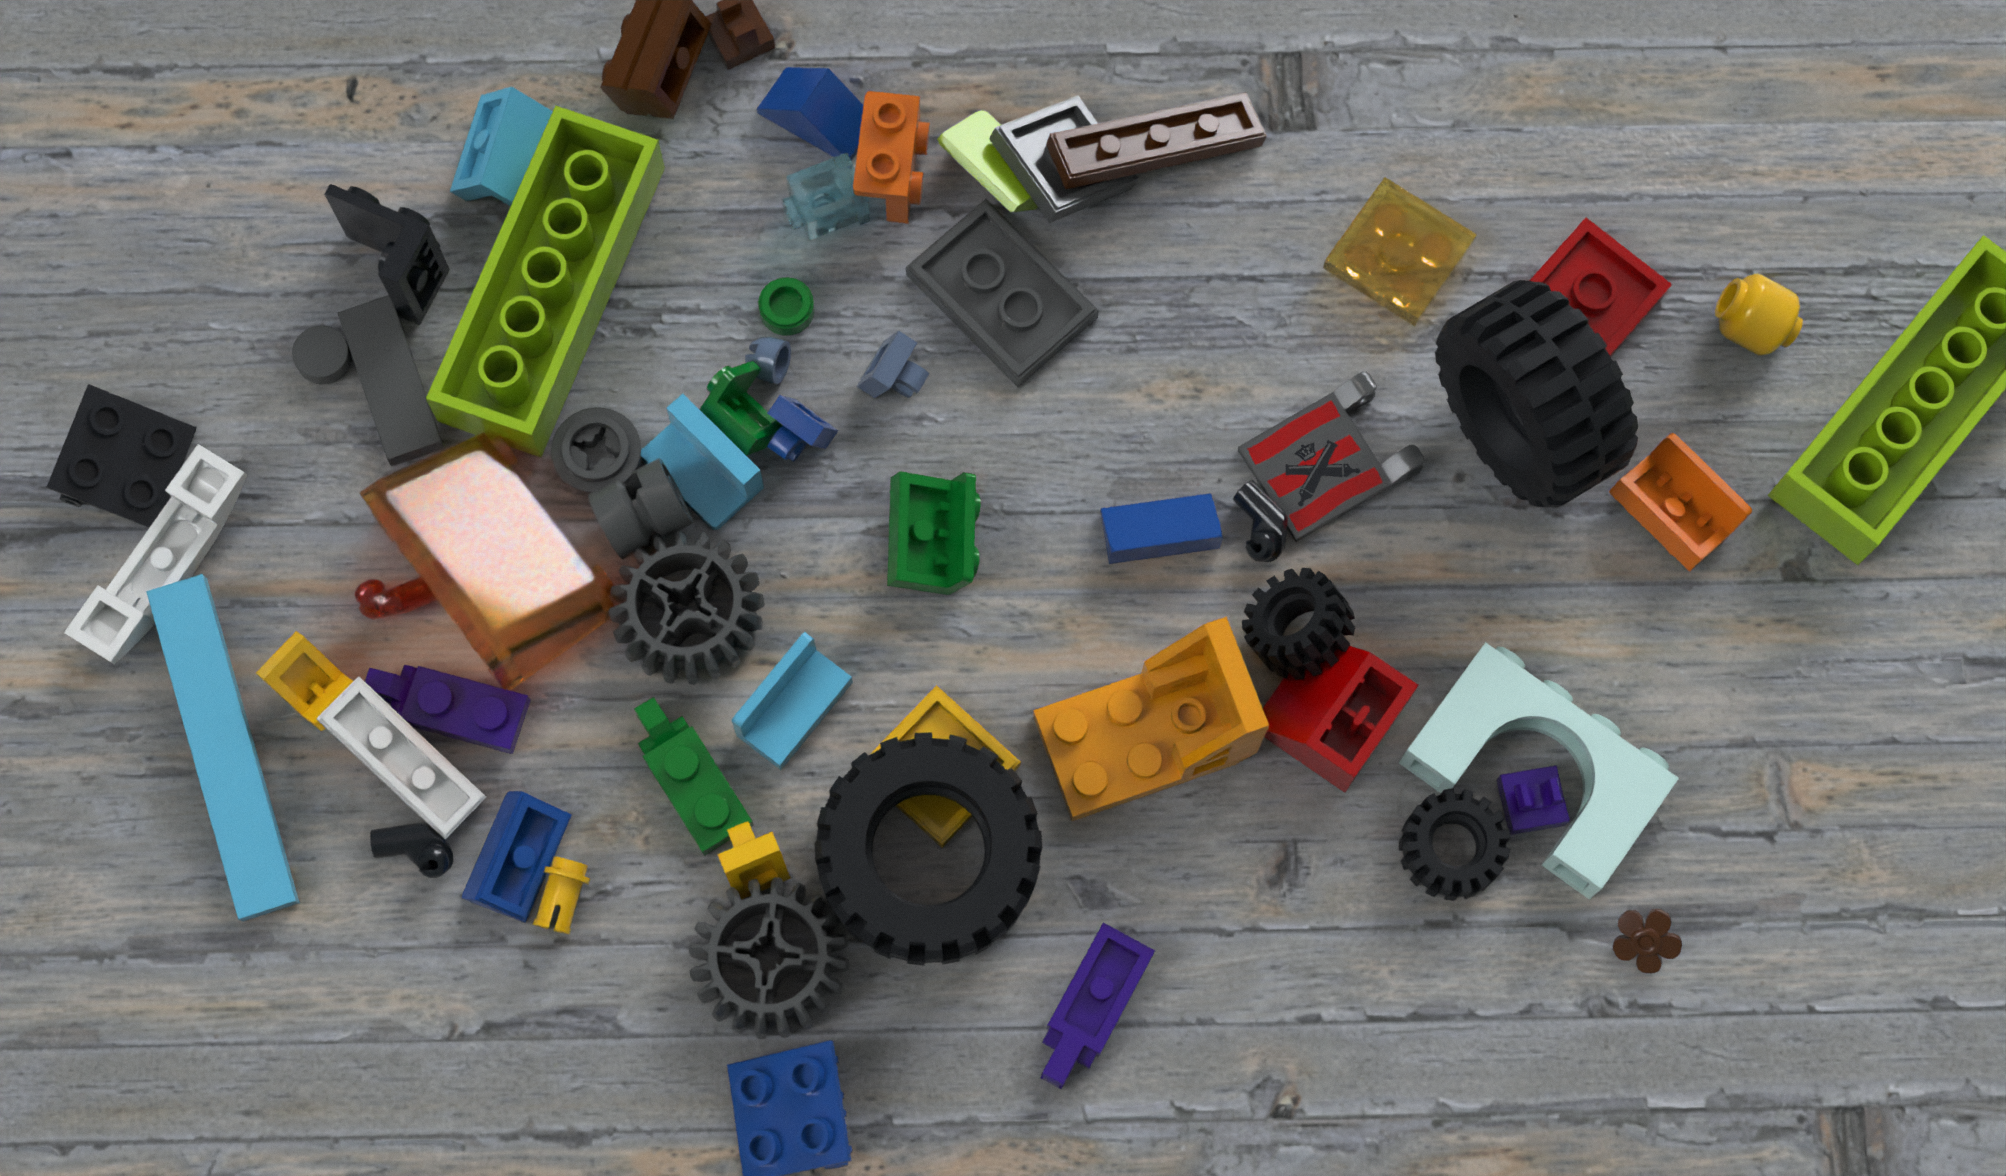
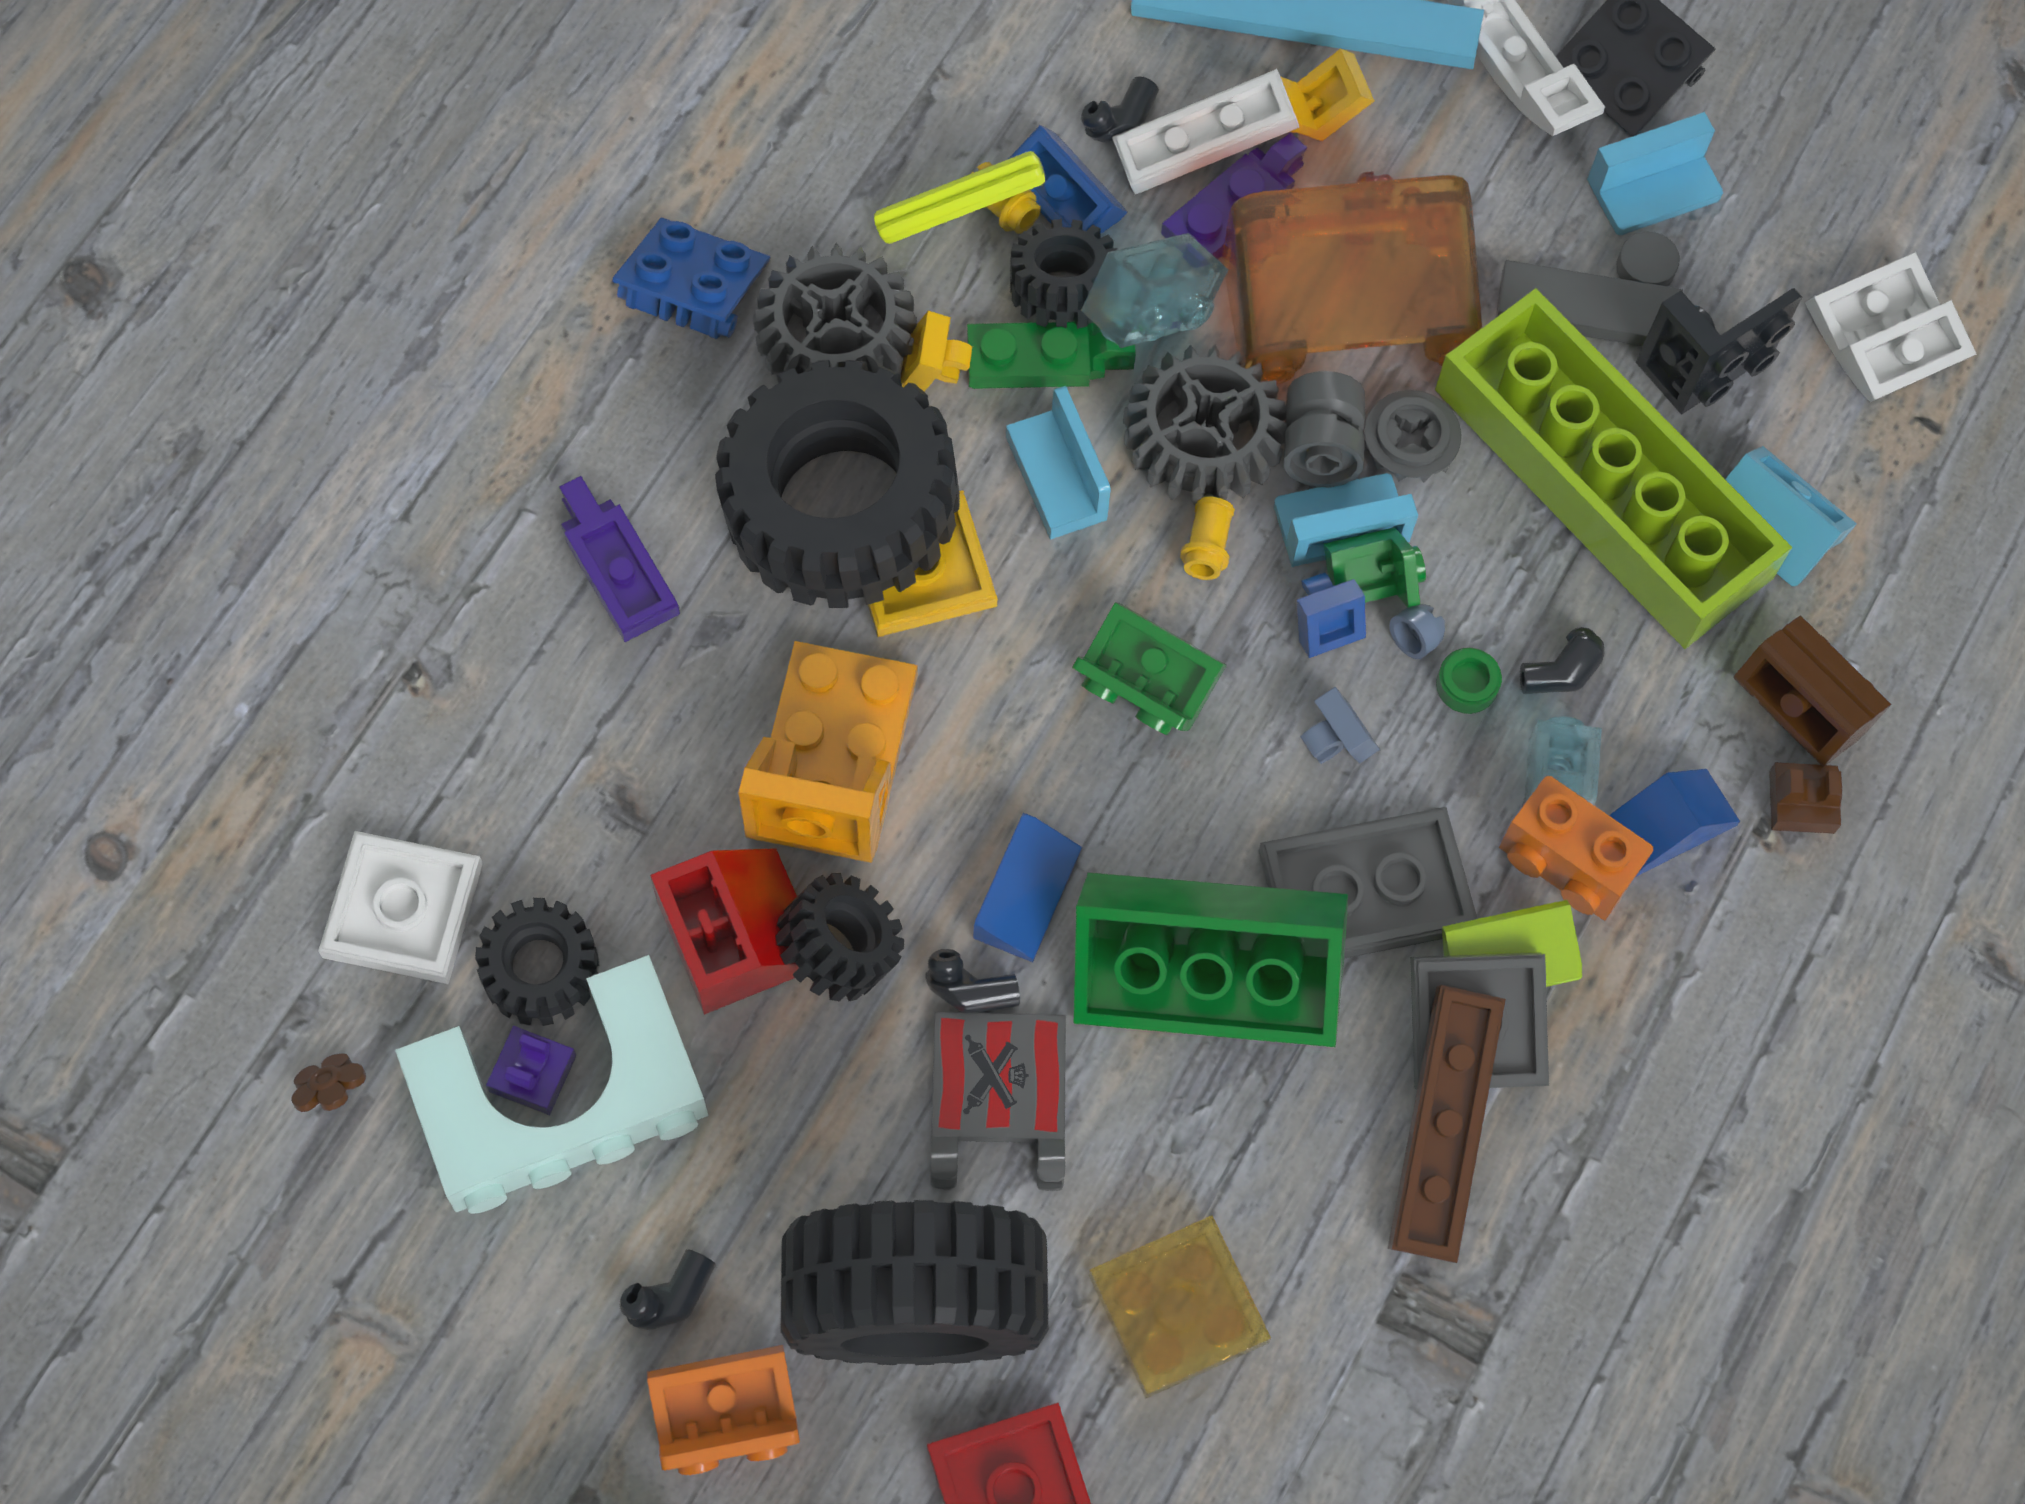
camera: 120 degrees right, 5 degrees down
(235, 384) = (1655, 175): none -> medium azure panel
(281, 149) = (1890, 328): none -> white slope
(581, 785) = (1056, 251): none -> black tyre
(590, 922) = (959, 197): none -> neon yellow axle
(598, 699) = (1154, 290): none -> clear light blue brick
(736, 236) = (1569, 670): none -> black arm
(785, 553) = (1206, 553): none -> yellow pin
(1137, 357) = (1209, 959): none -> green slope
(1476, 983) = (401, 907): none -> white tile
(1626, 593) = (670, 1301): none -> black arm

